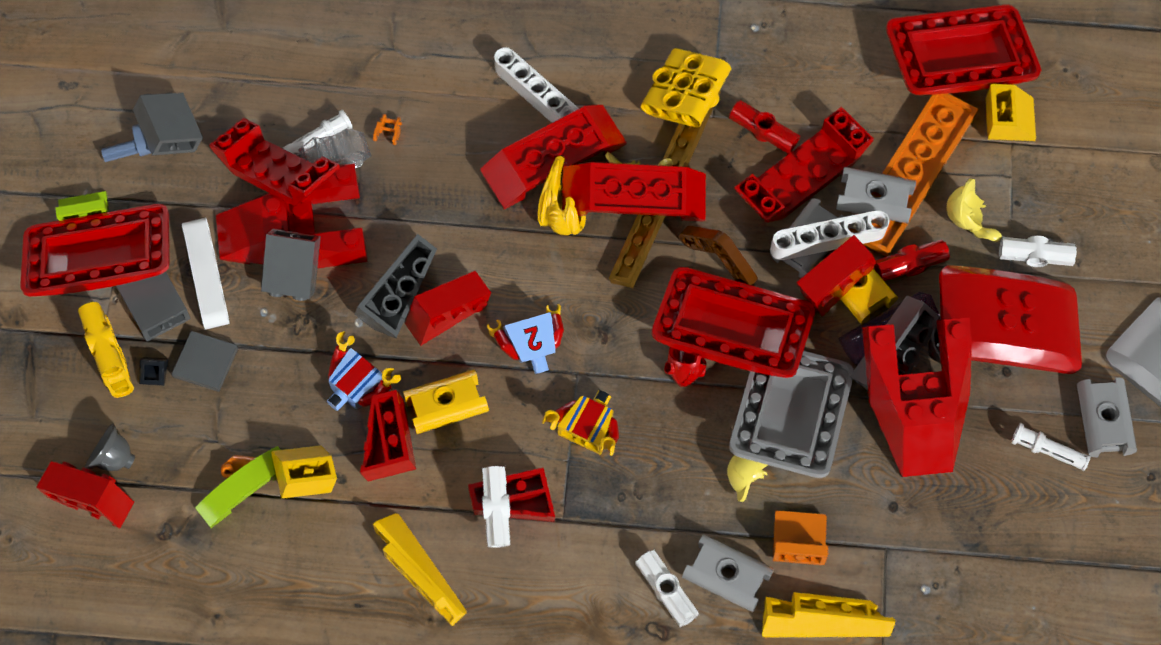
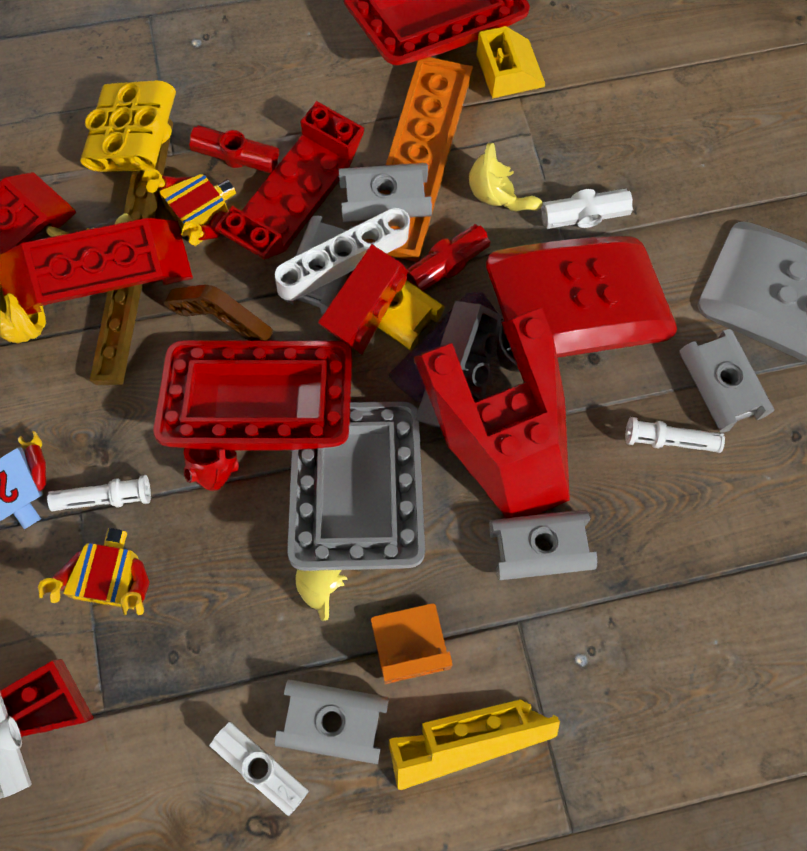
camera: 20 degrees left, 5 degrees up
(608, 366) = (114, 493): none -> white pin
(721, 162) = (192, 202): none -> torso
(938, 490) = (524, 559): none -> light grey piece

